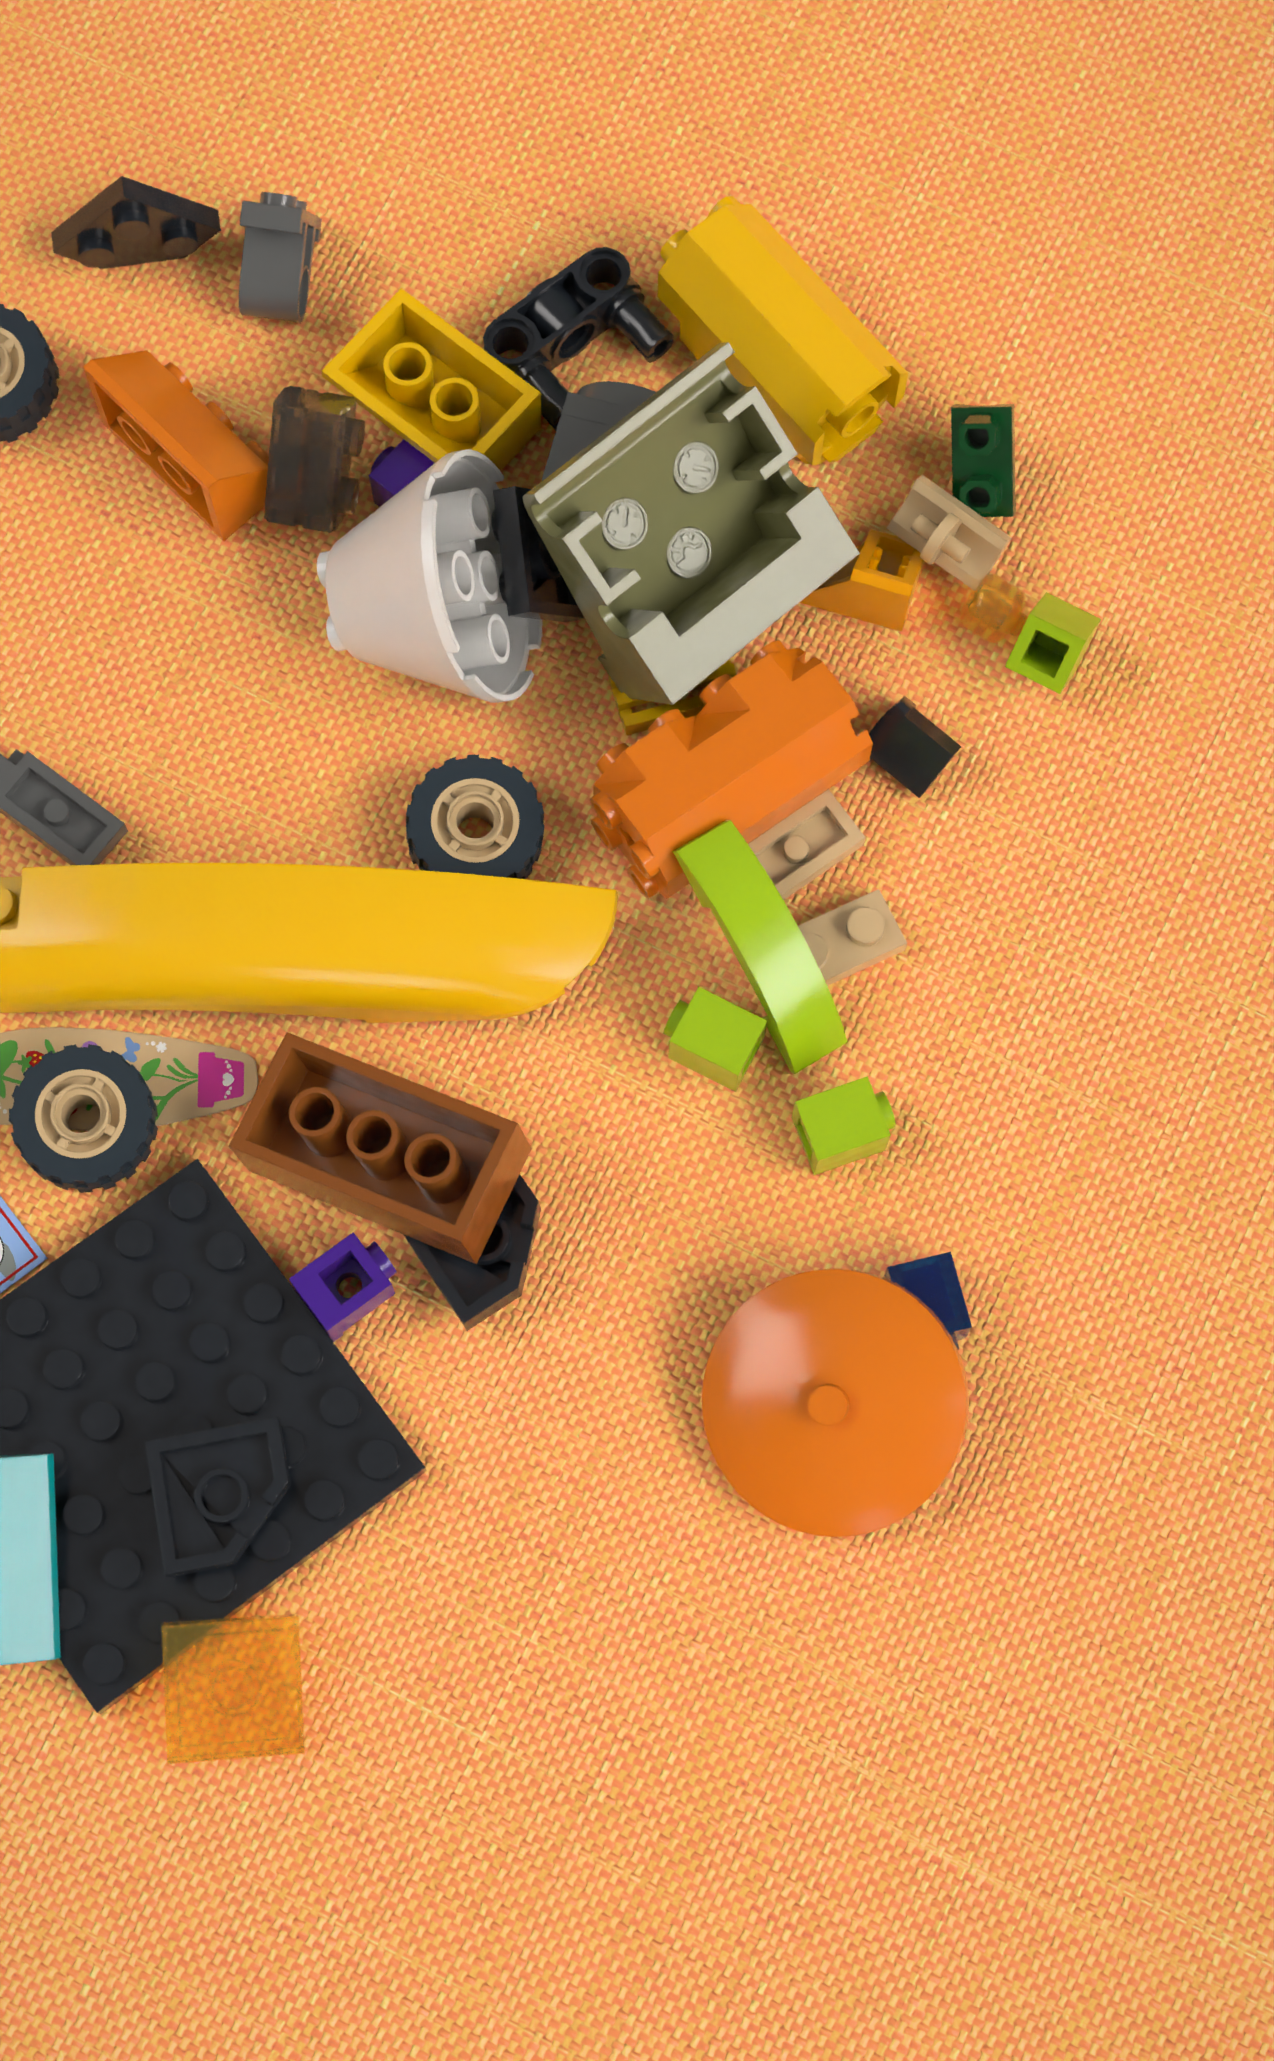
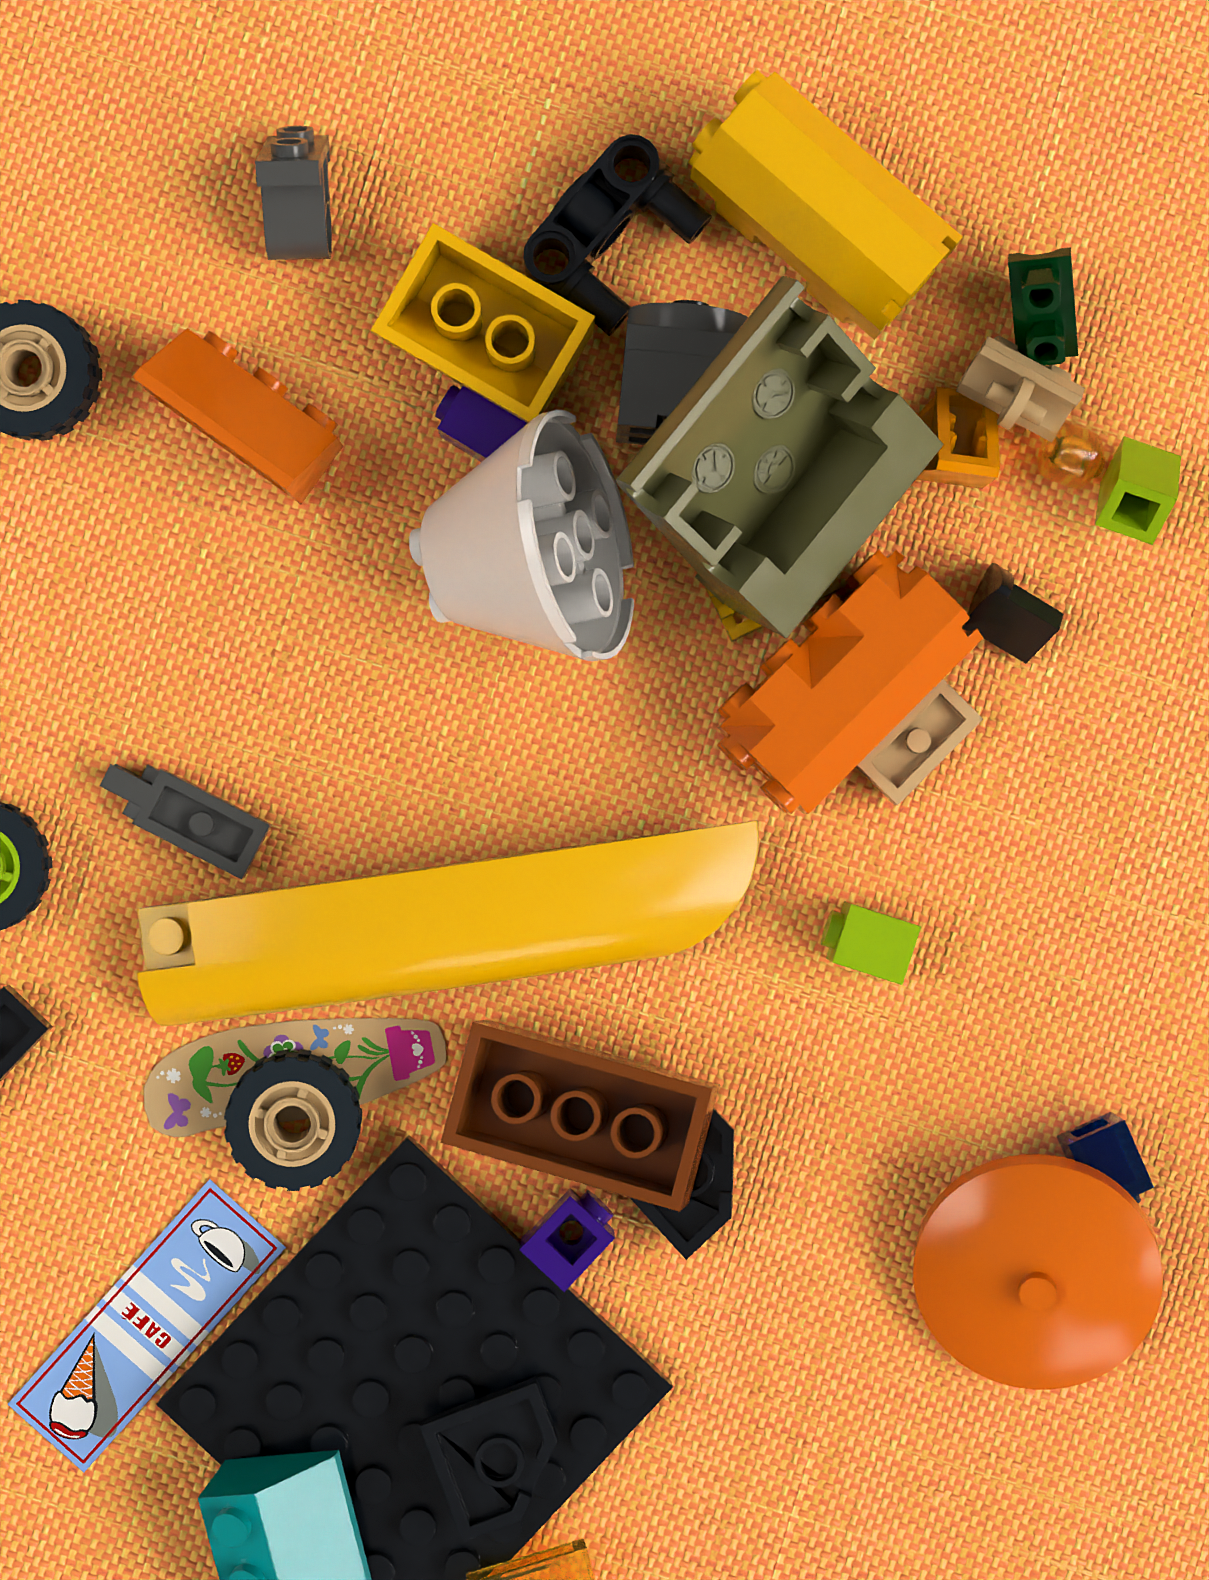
camera: 10 degrees left, 15 degrees up
(134, 226) = (144, 187): black plate -> none
(312, 459) = (376, 421): clear smoke brick -> none
(475, 790) = (645, 776): black wheel -> none
(529, 576) = (617, 522): black plate -> none
(766, 944) = (904, 850): lime slope -> none
(843, 1124) = (1004, 1005): lime brick -> none
(853, 937) = (968, 824): tan plate -> none

